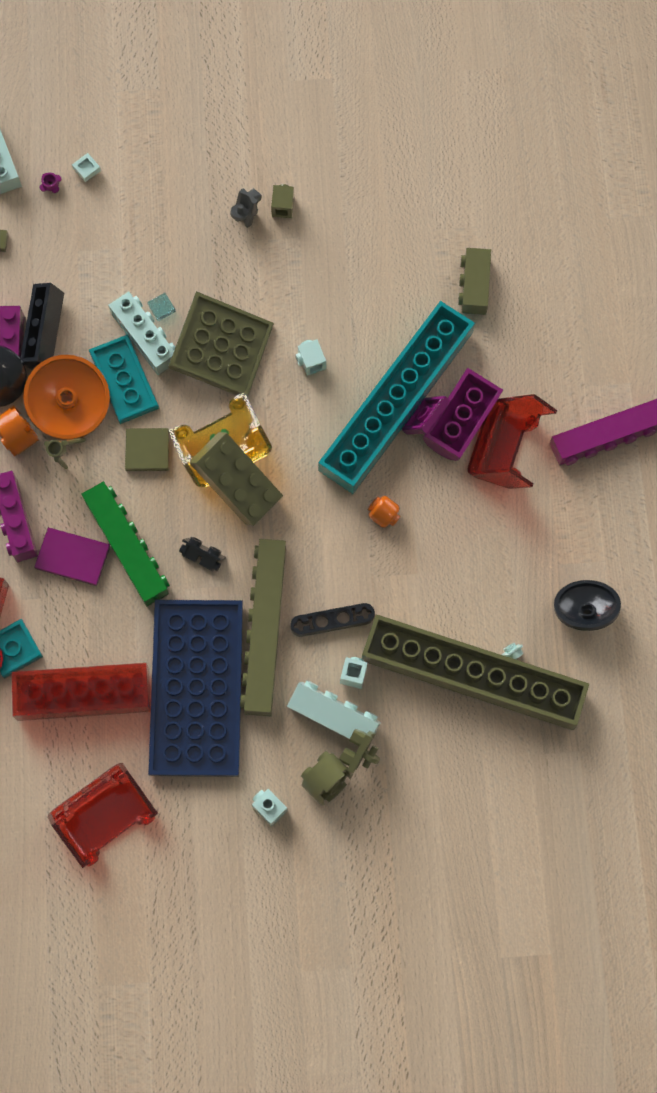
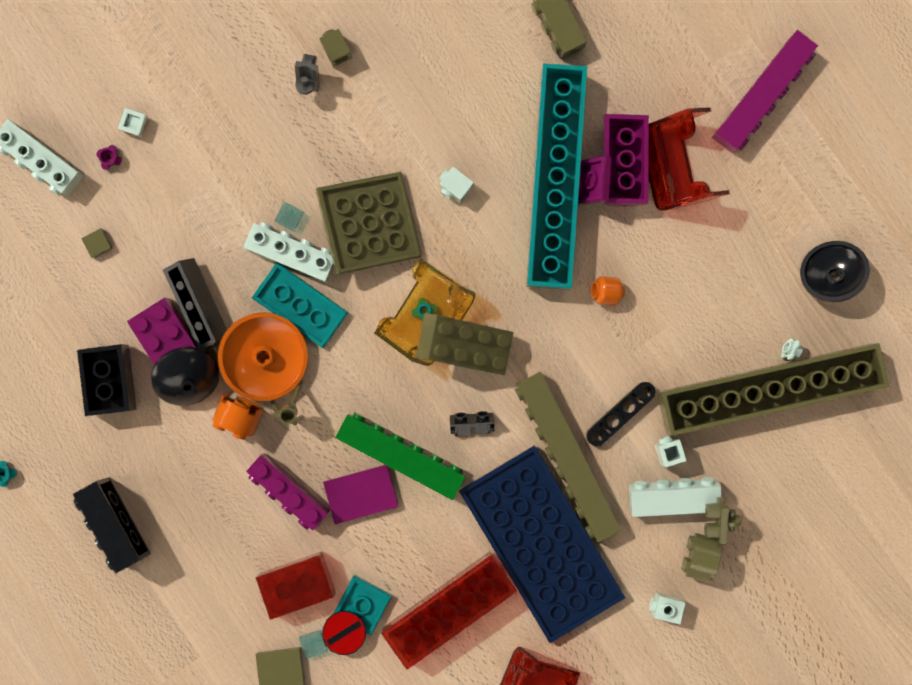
camera: 30 degrees left, 15 degrees up
(147, 449) = (363, 358): olive tile -> none

